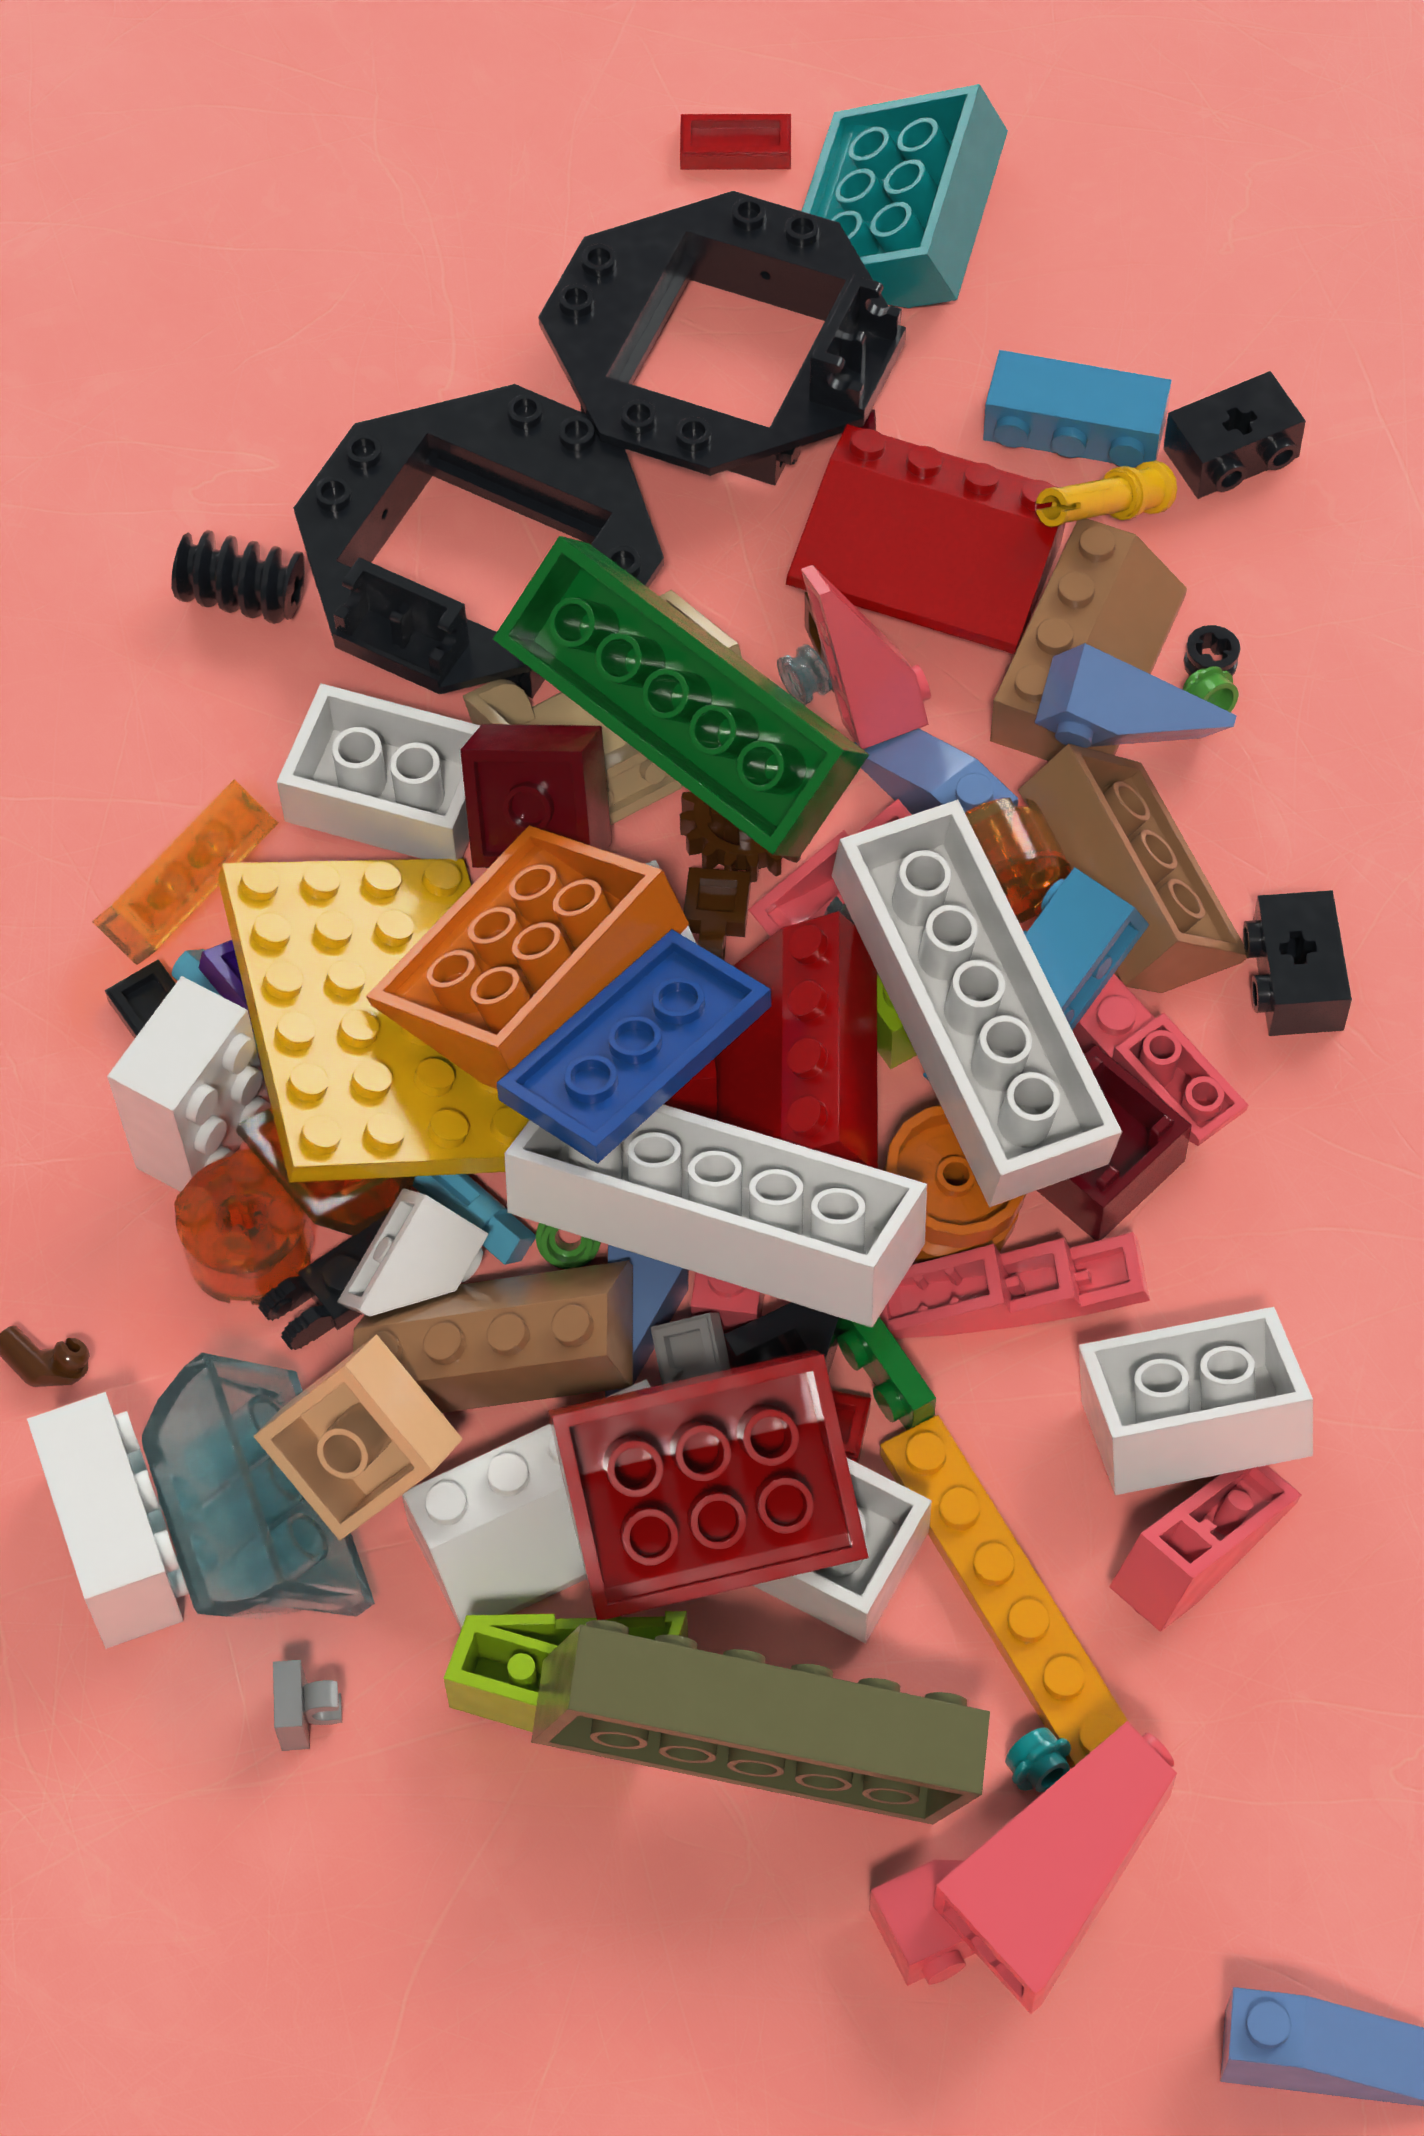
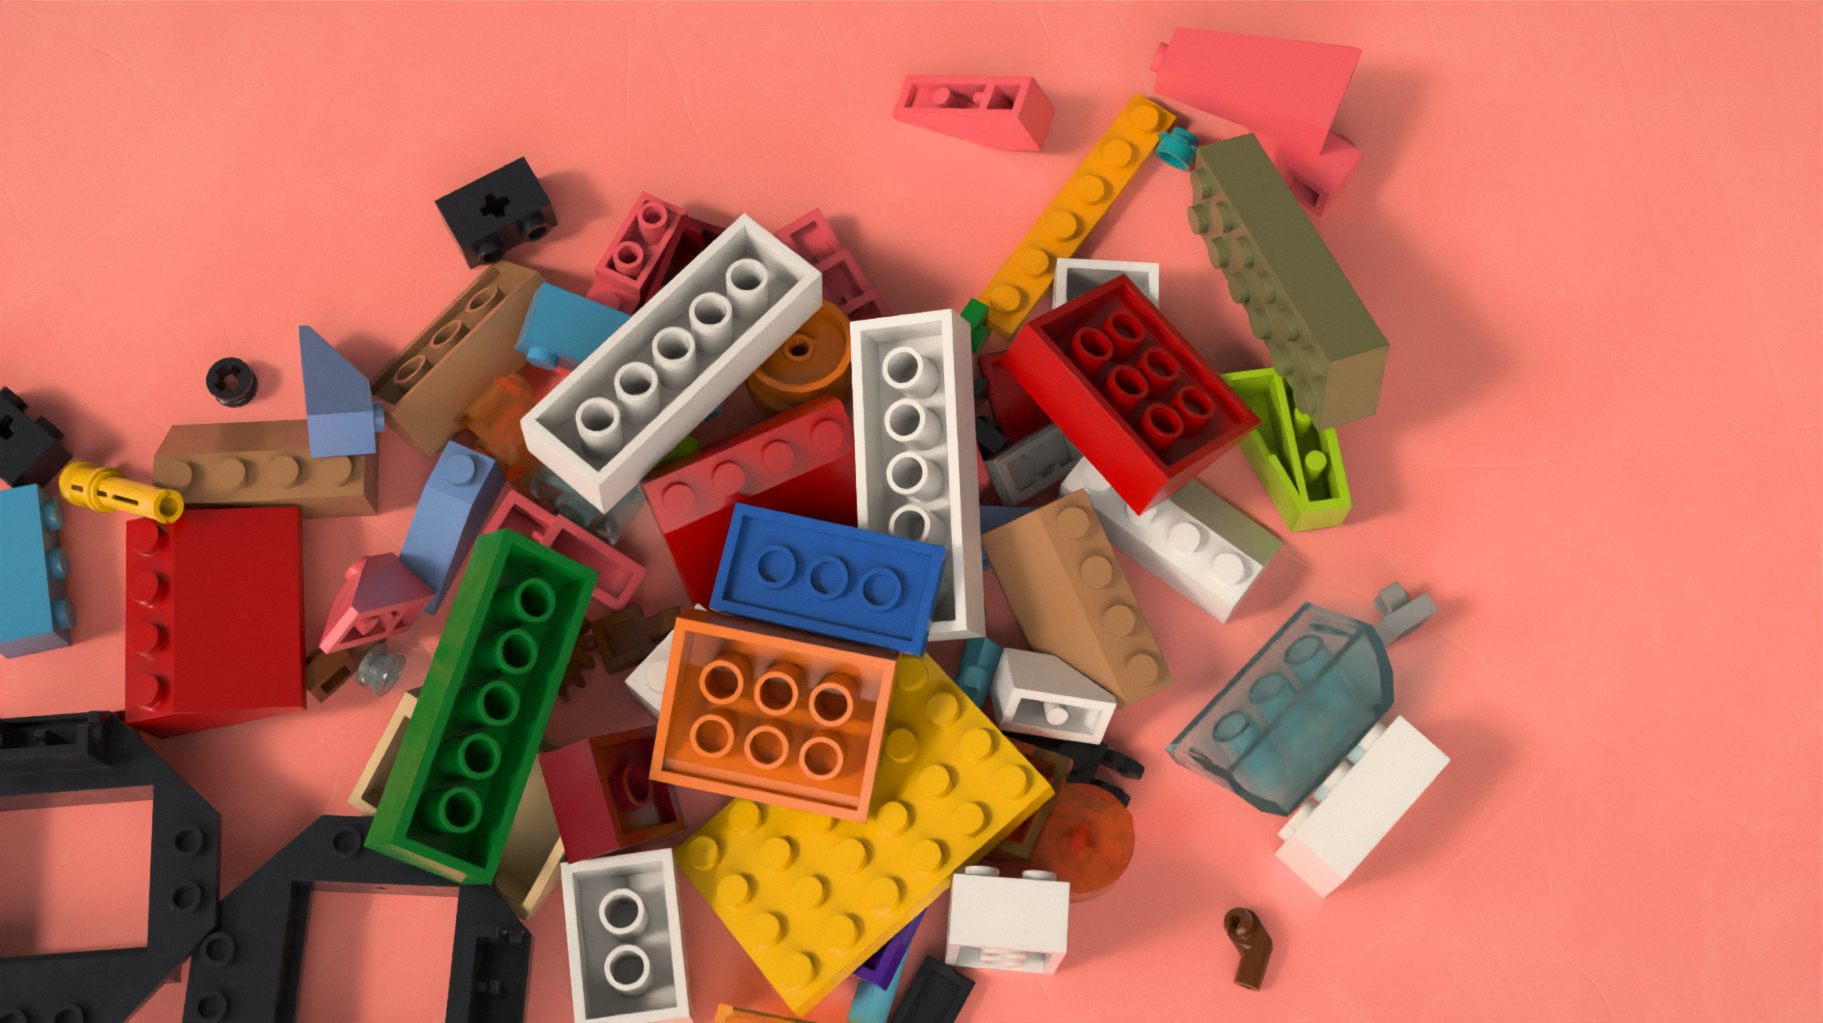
camera: 120 degrees left, 10 degrees up
(358, 1438) = (1216, 649): light nougat brick -> none
(1196, 1400) = (890, 138): white brick -> none
(1214, 687) = (274, 366): bright green plate -> none

